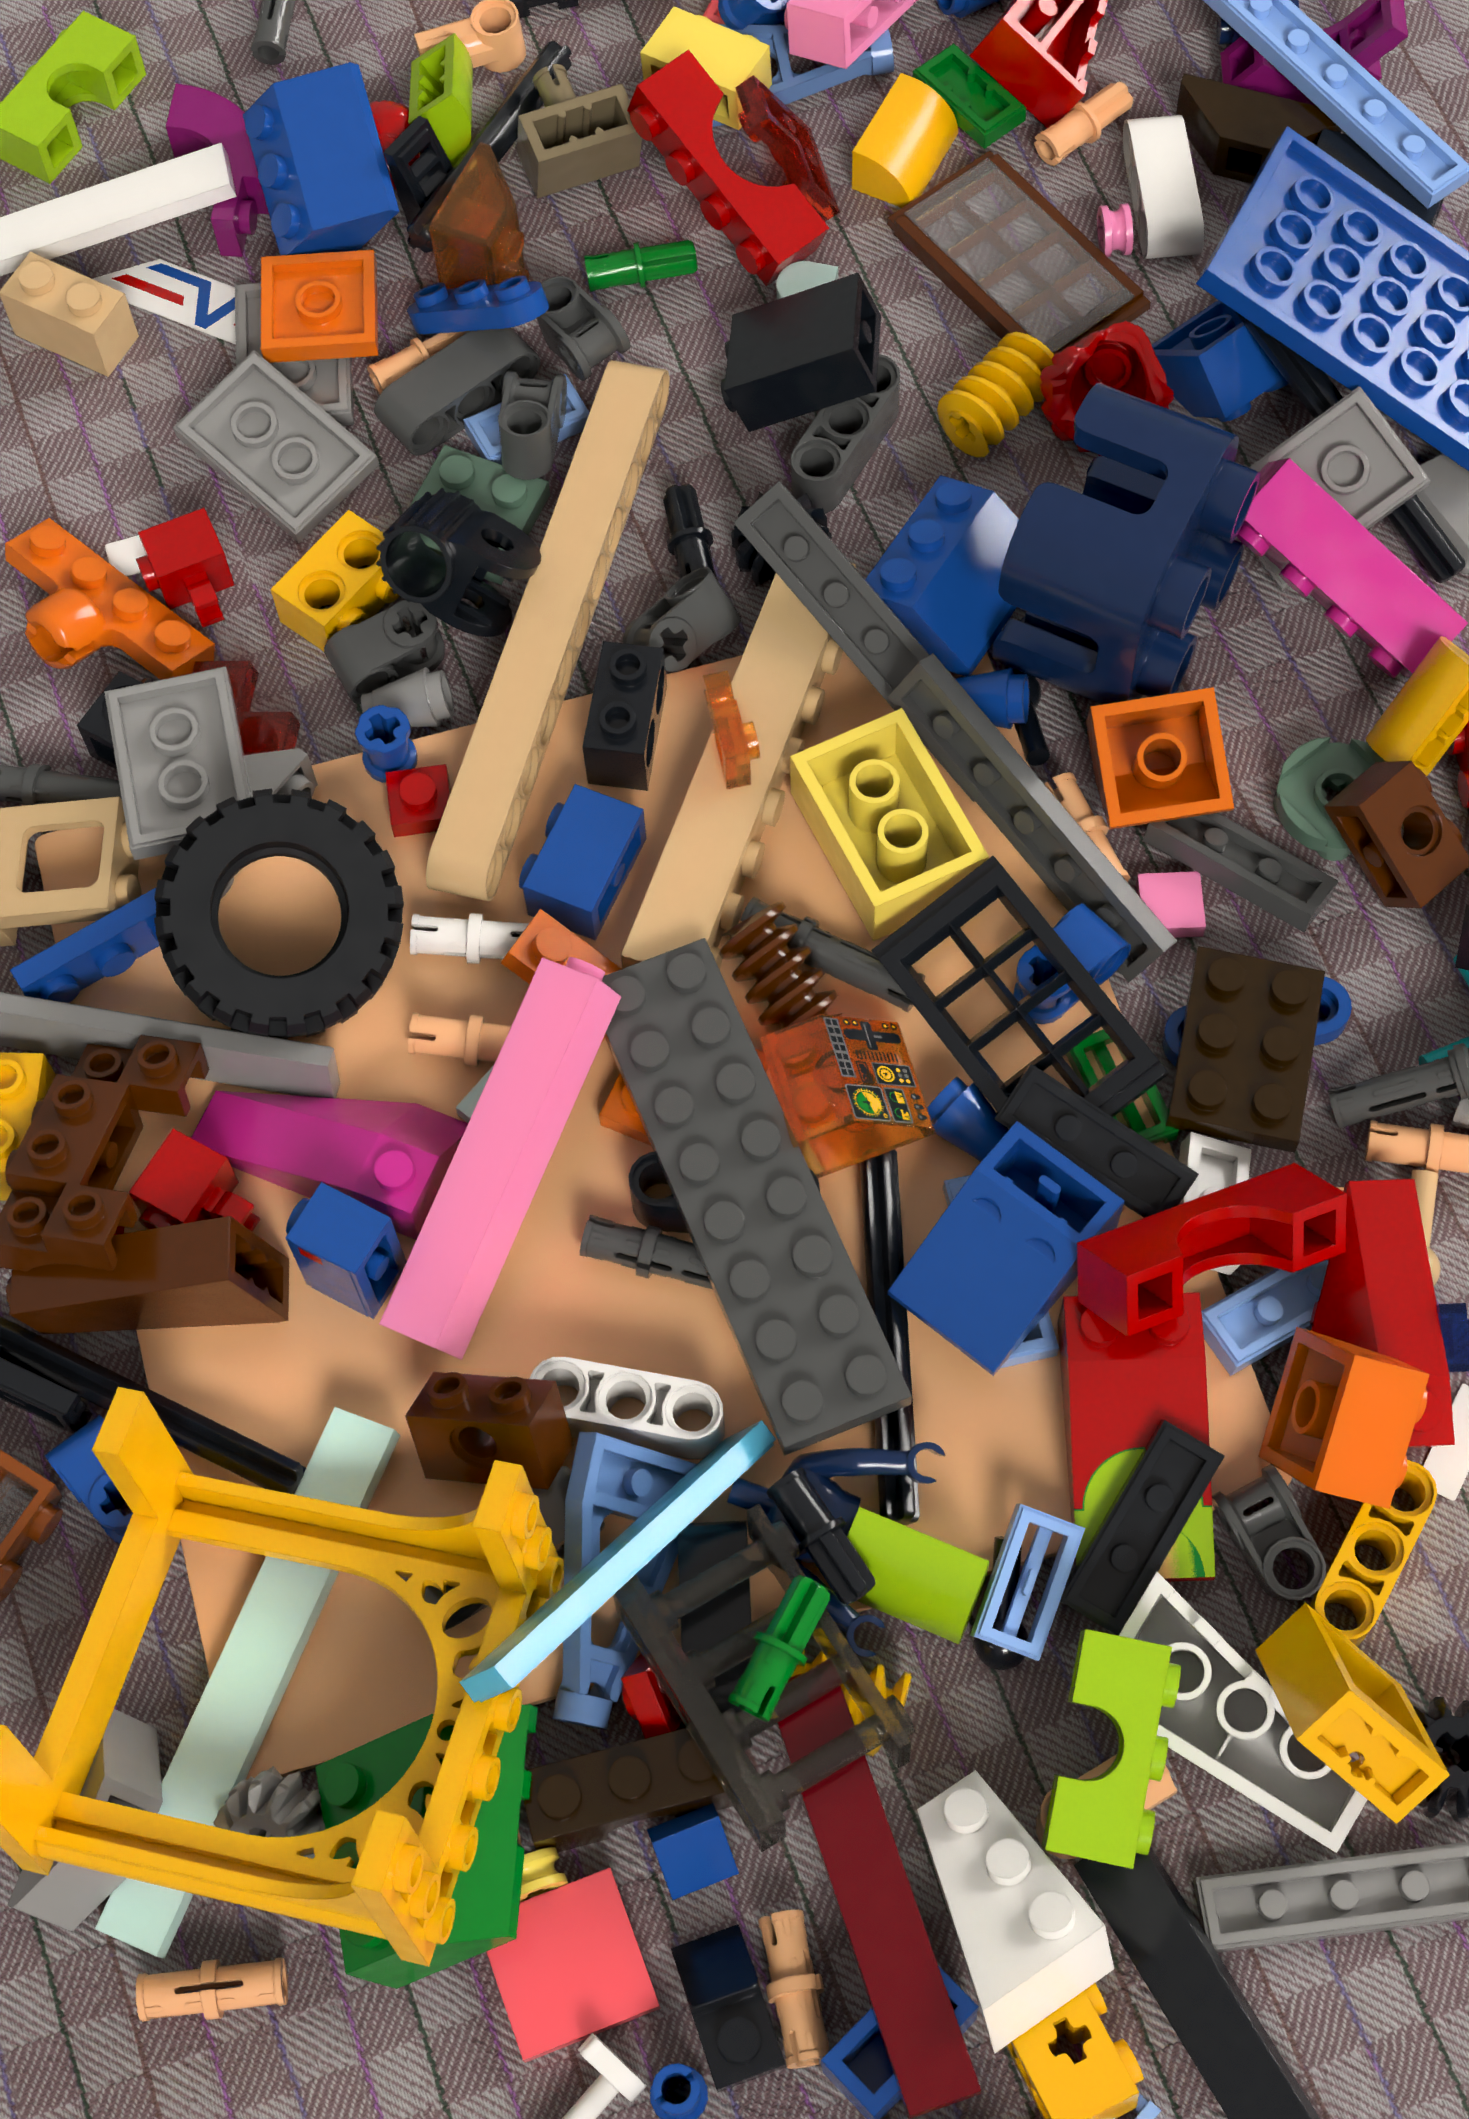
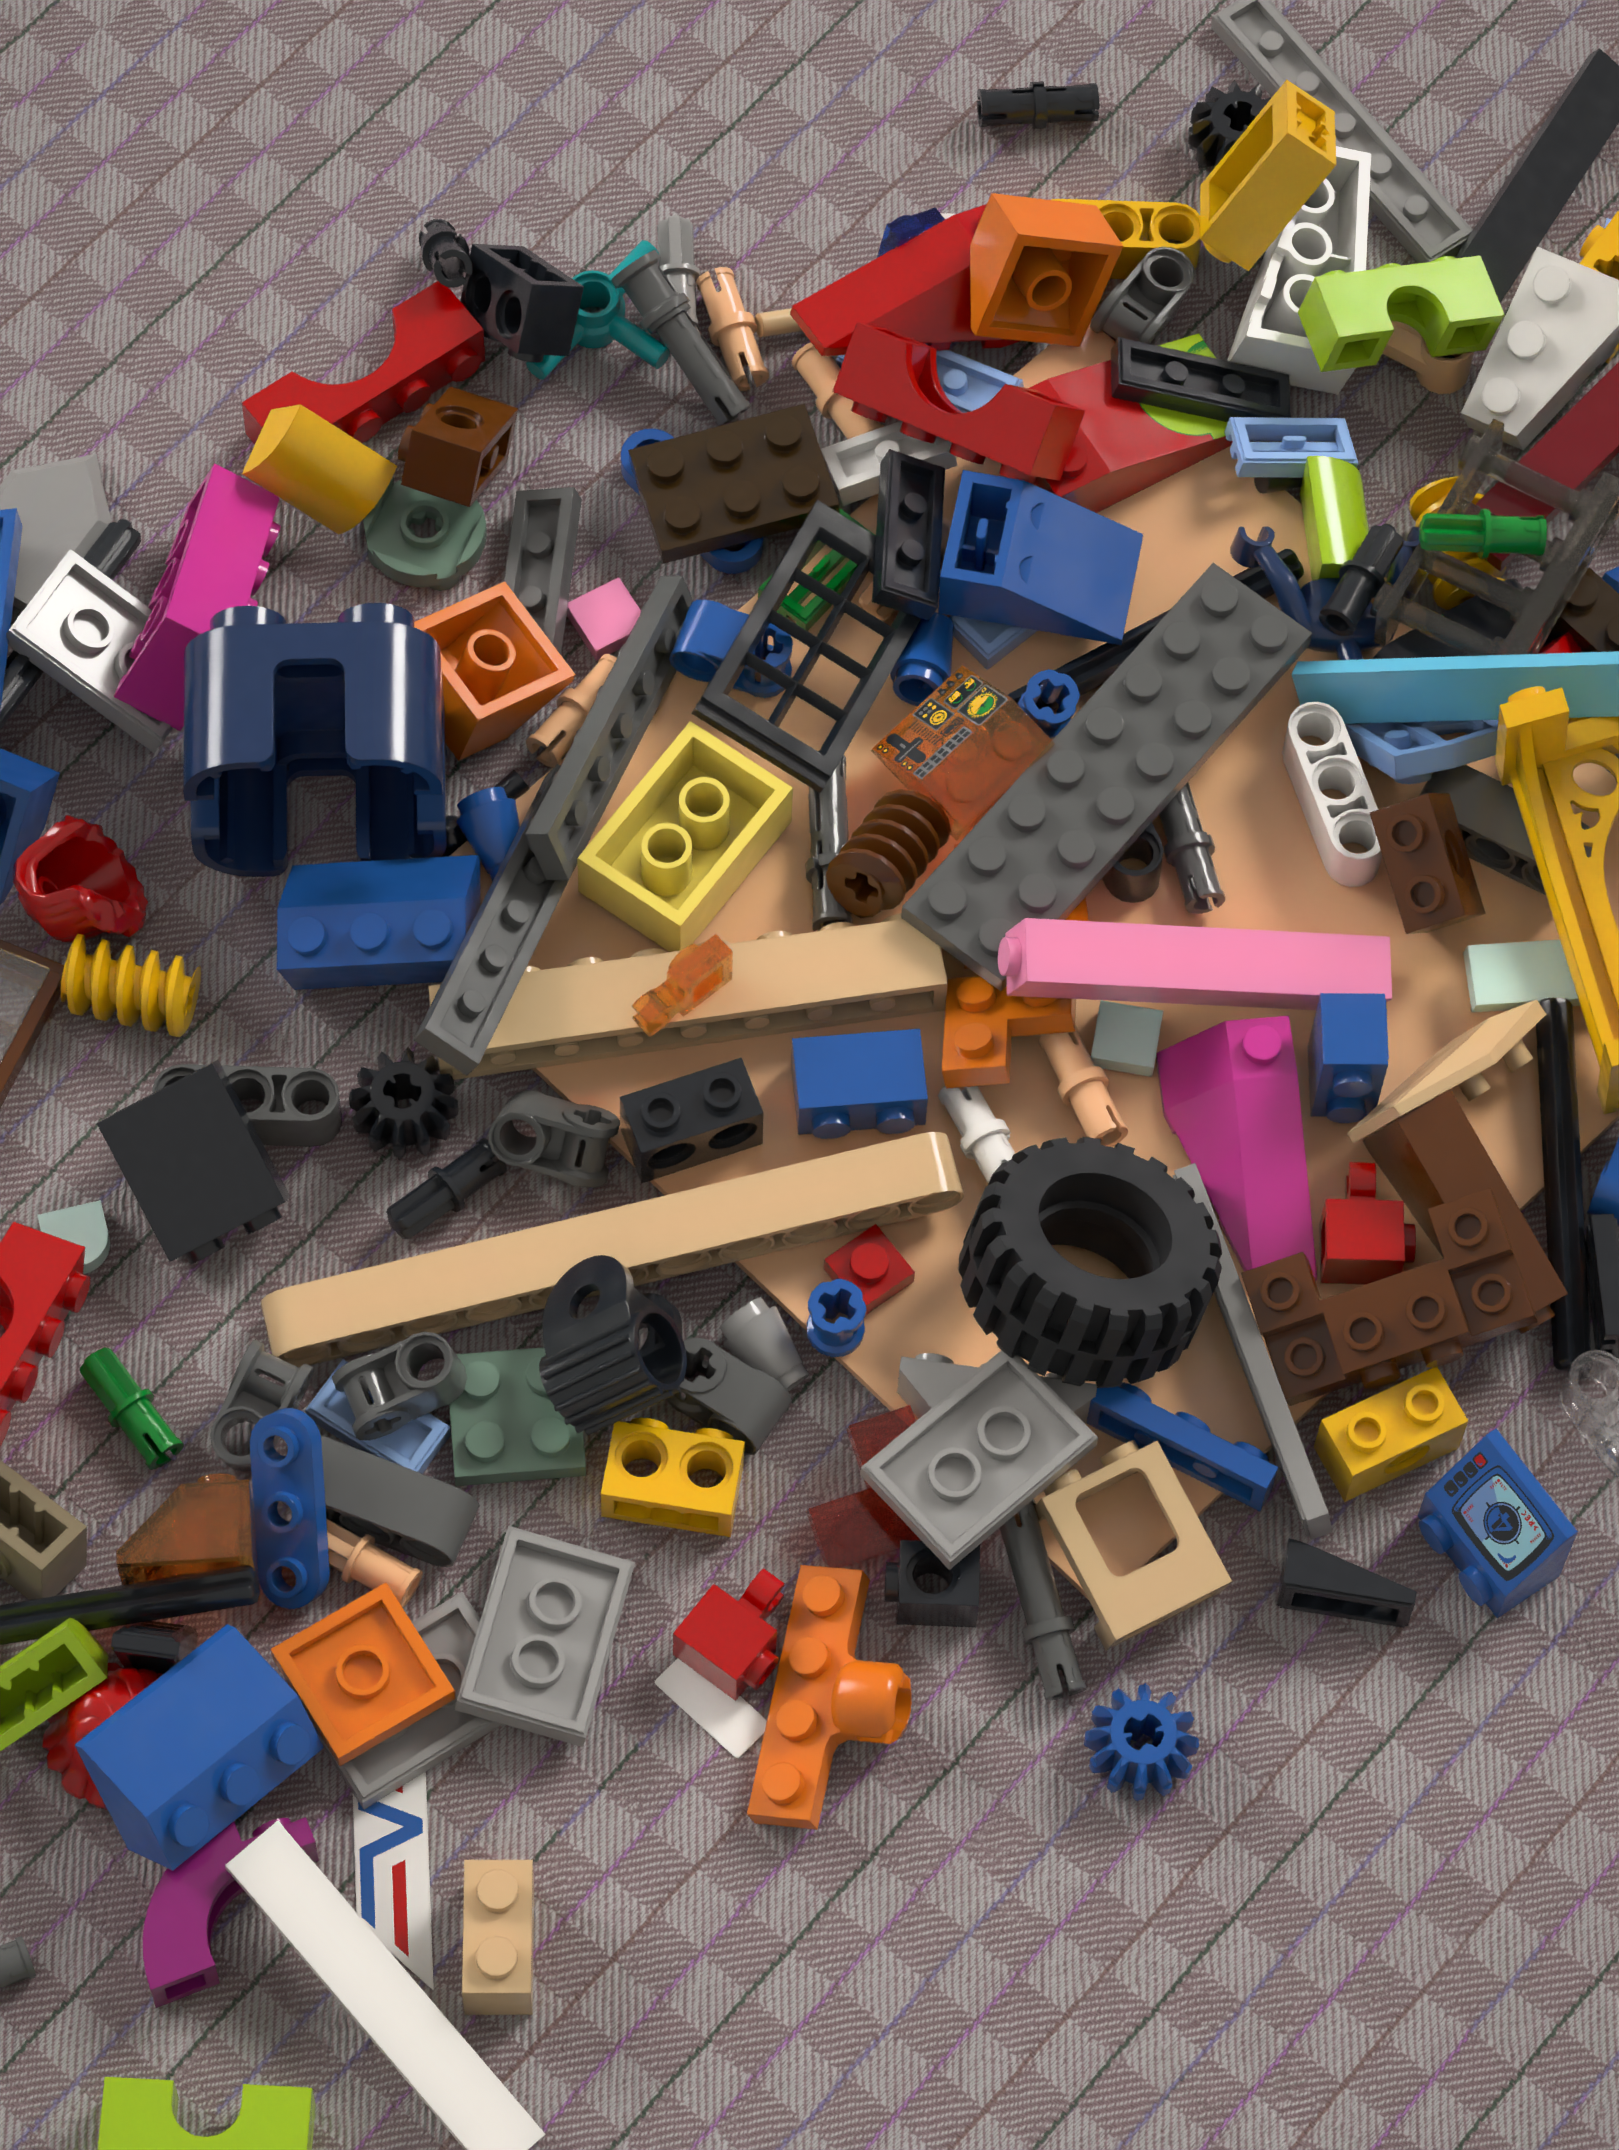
camera: 125 degrees left, 0 degrees up
(274, 1333) = (1459, 1064): none -> tan piece
(845, 1163) = (1051, 687): none -> blue bush

